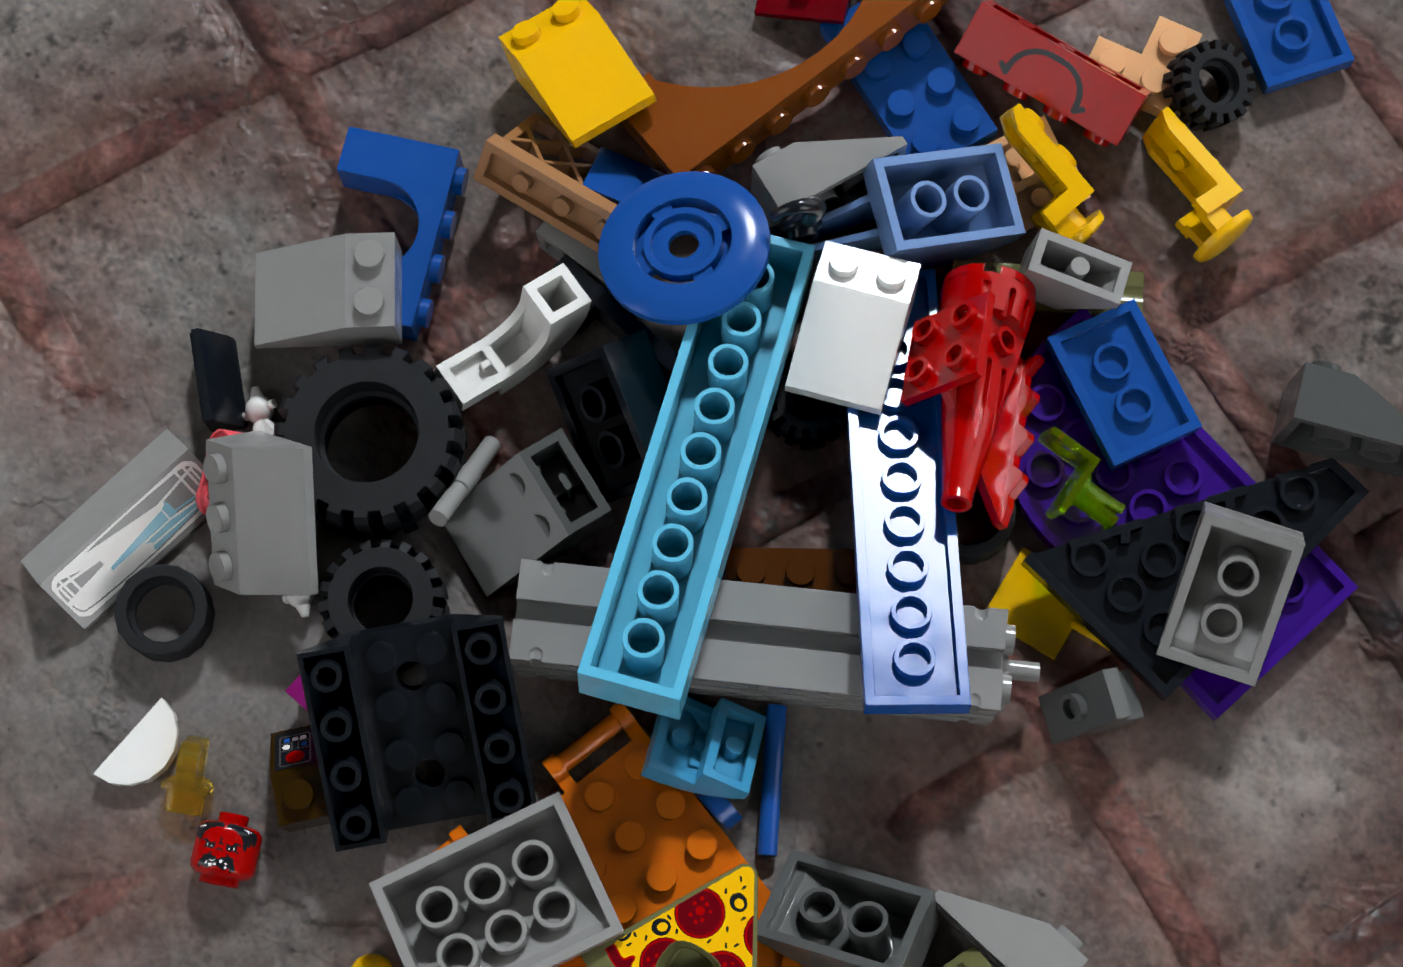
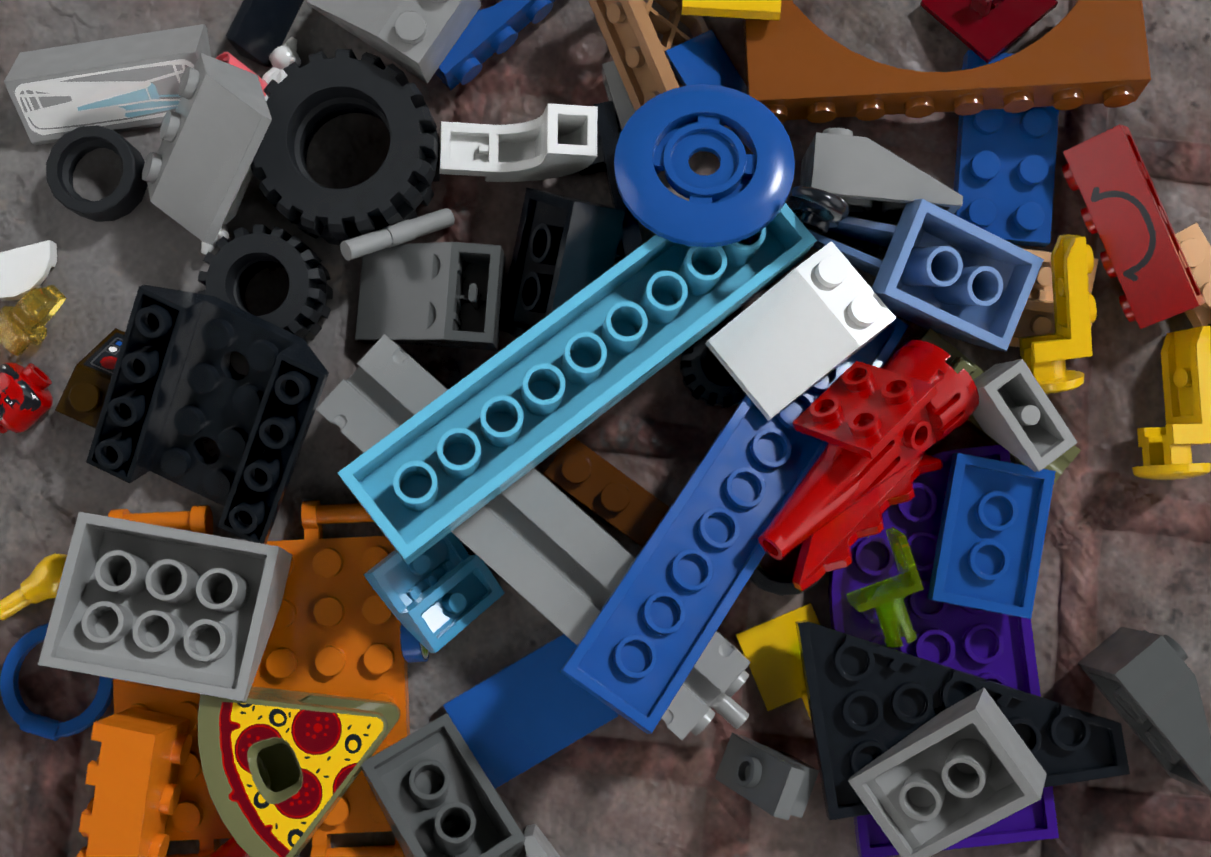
camera: 40 degrees right, 10 degrees up
(772, 780) = (471, 647): blue bar -> none
(860, 794) = (526, 713): none -> blue tile

